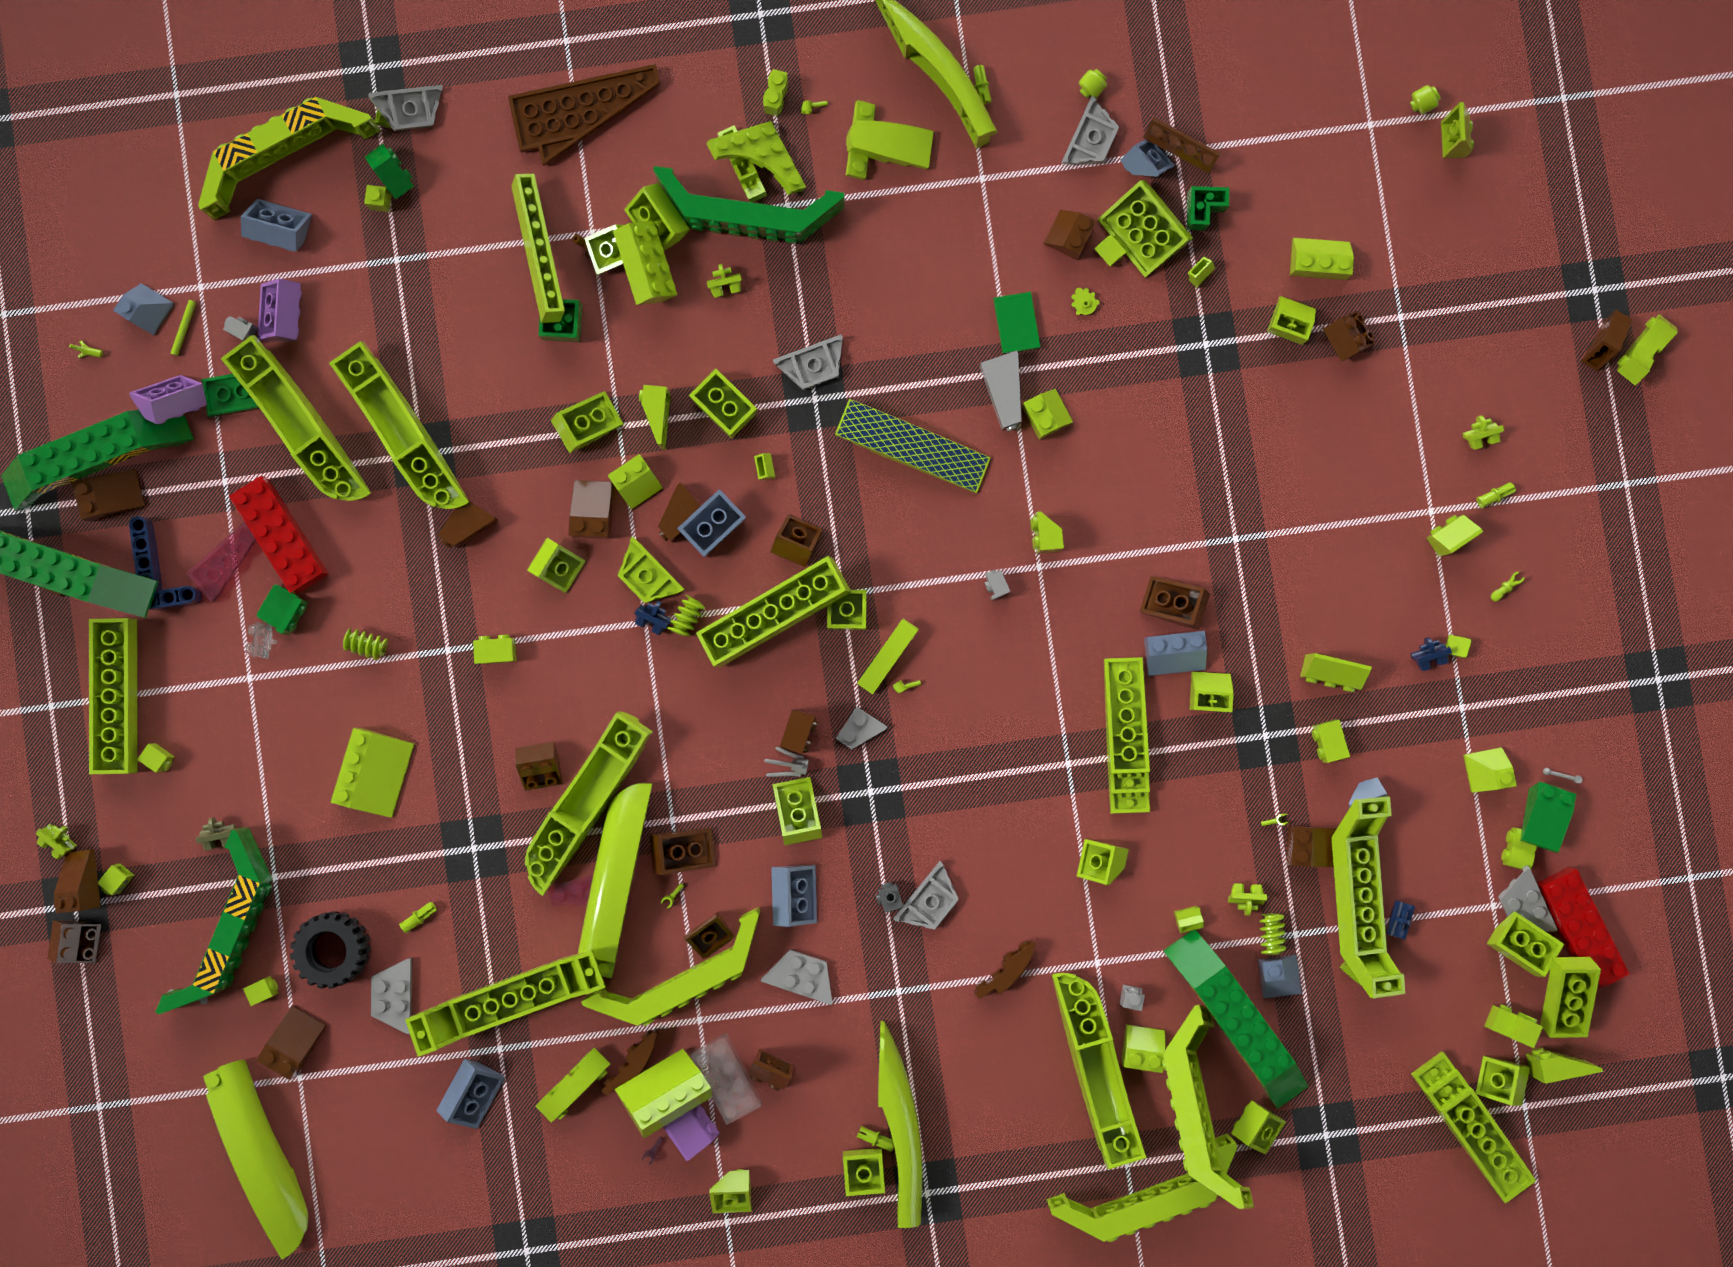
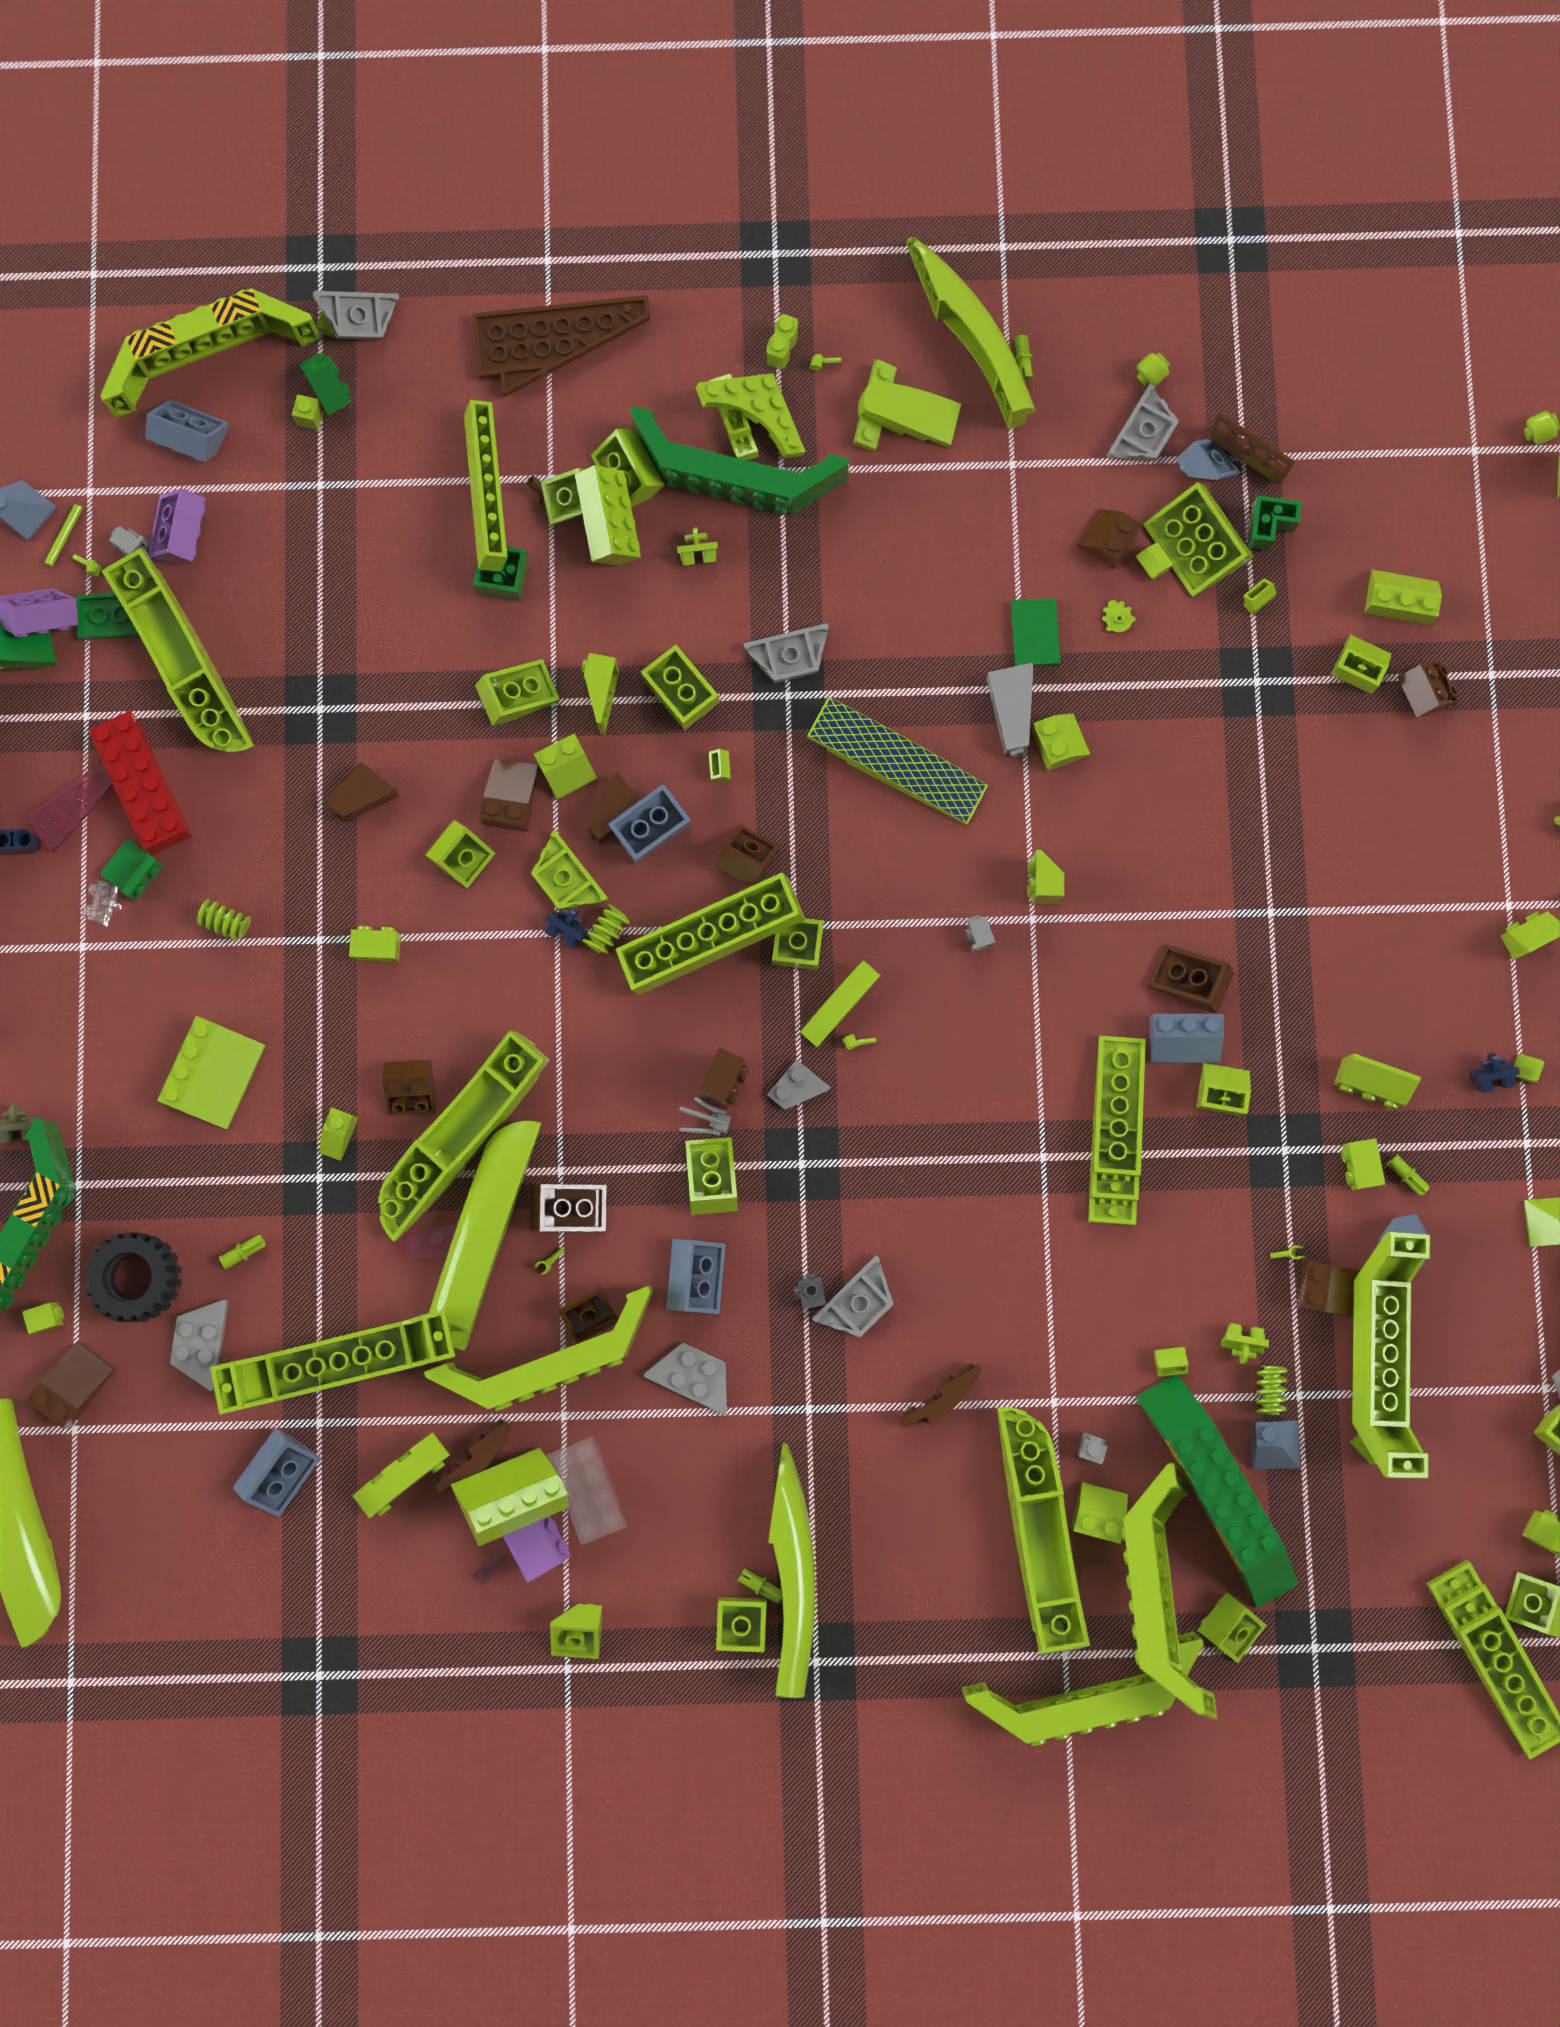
camera: 15 degrees right, 5 degrees down
(211, 352) = (92, 567): none -> lime hand
(398, 428) = (296, 674): lime slope -> none
(483, 810) = (337, 1133): none -> lime slope
(771, 1070) = (642, 1485): reddish brown slope -> none
(1101, 861) = (1071, 1278): lime slope -> none
(1367, 745) = (1408, 1175): none -> lime axle
(1400, 919) = (1429, 1390): dark blue hips -> none

